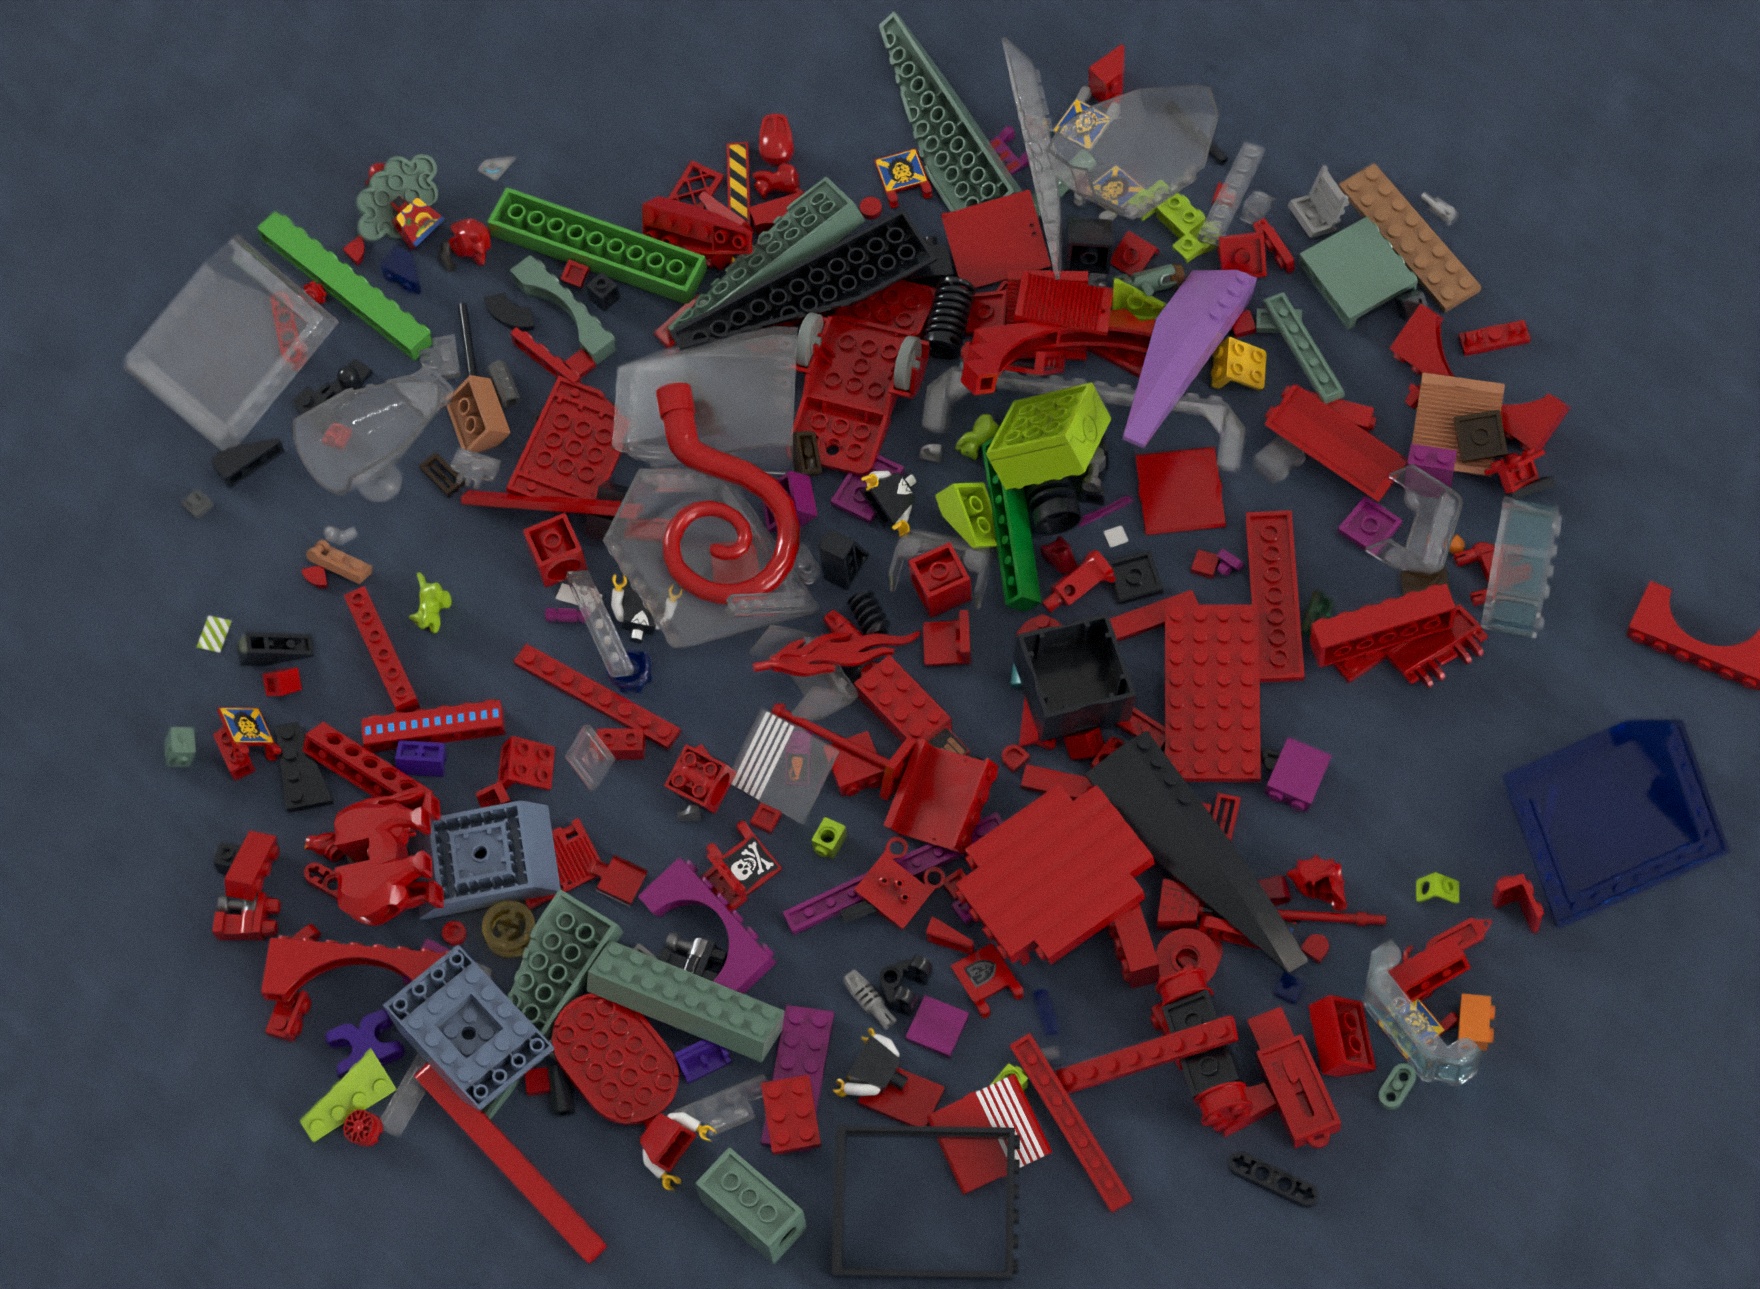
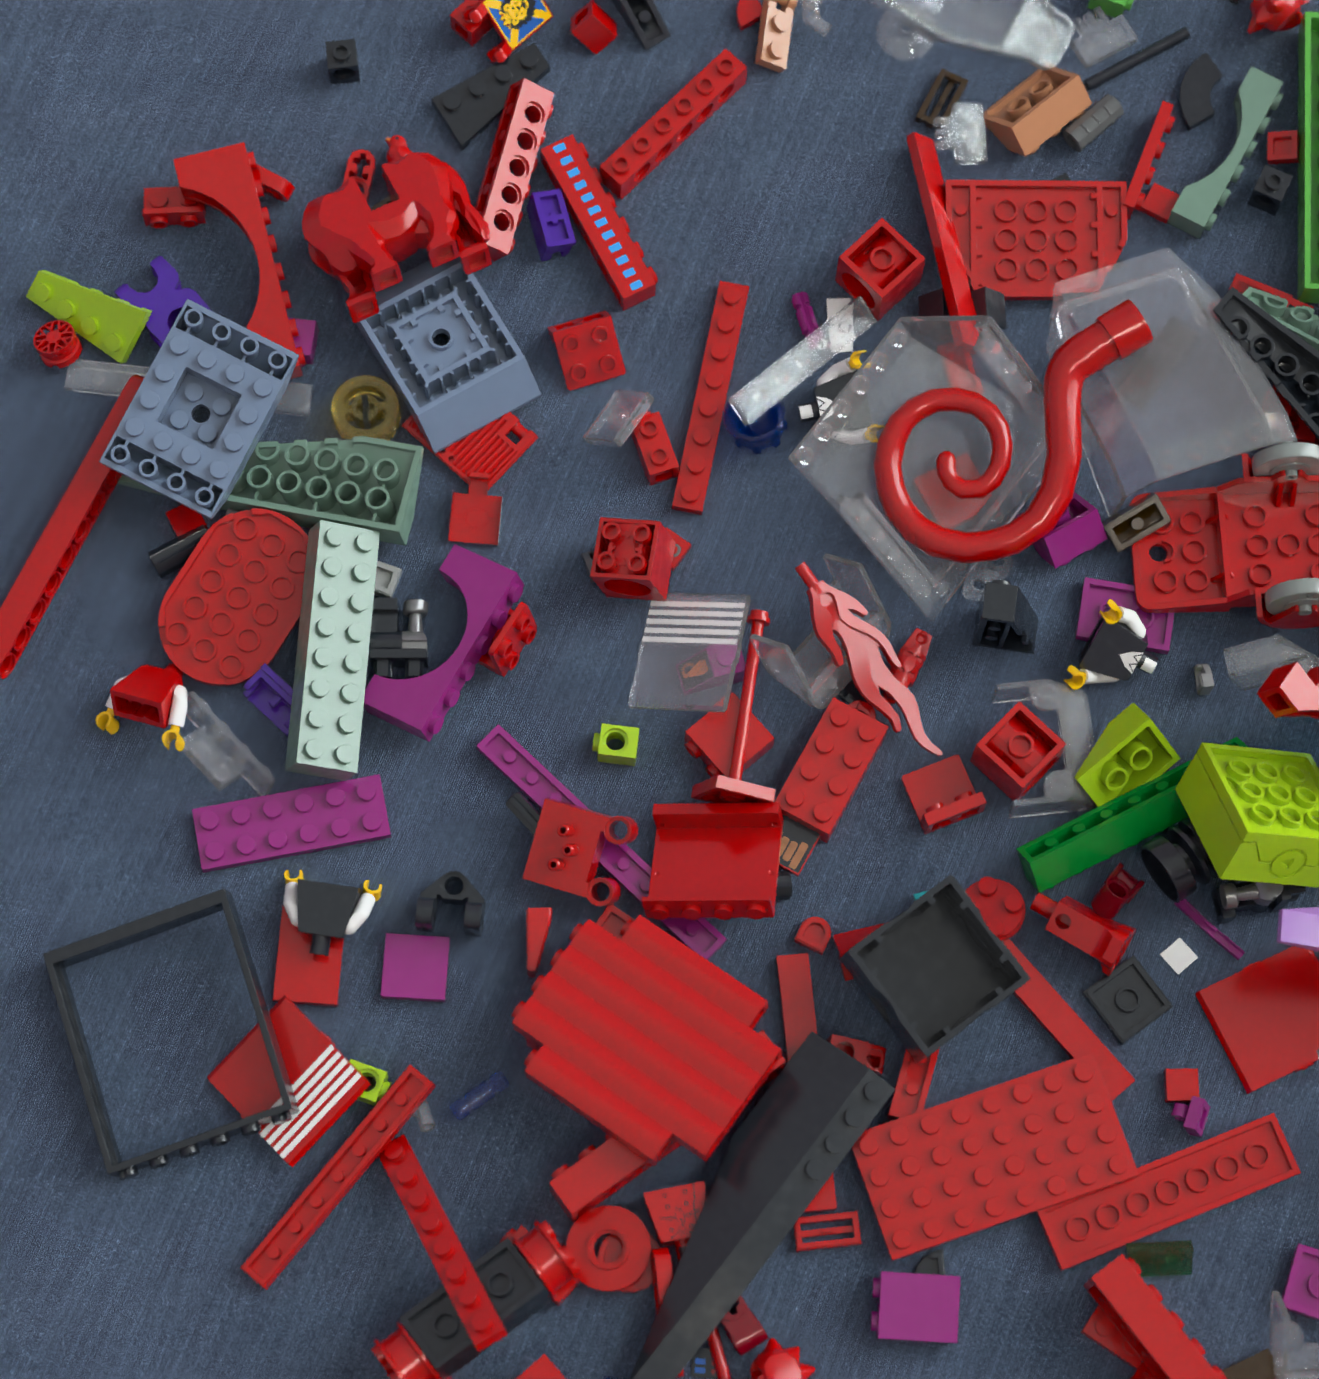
camera: 60 degrees right, 10 degrees up
(251, 866) = (338, 87): red brick -> none
(252, 922) = (278, 118): red hips -> none
(431, 602) = (760, 154): lime animal -> none
(454, 933) = (342, 351): red tile -> none
(492, 795) = (528, 330): red panel -> none
(748, 860) = (553, 658): flag -> none
(751, 1205) = (94, 825): sand green piece -> none
(765, 818) = (621, 659): red tile -> none
(791, 1114) = (234, 831): red plate -> none
(868, 613) = (941, 681): black piece -> none
(868, 998) = (421, 870): light grey hinge -> none
(983, 430) = (1255, 732): lime animal -> none
(984, 975) = (494, 1002): red flag -> none
(1084, 743) = (861, 1017): red panel -> none

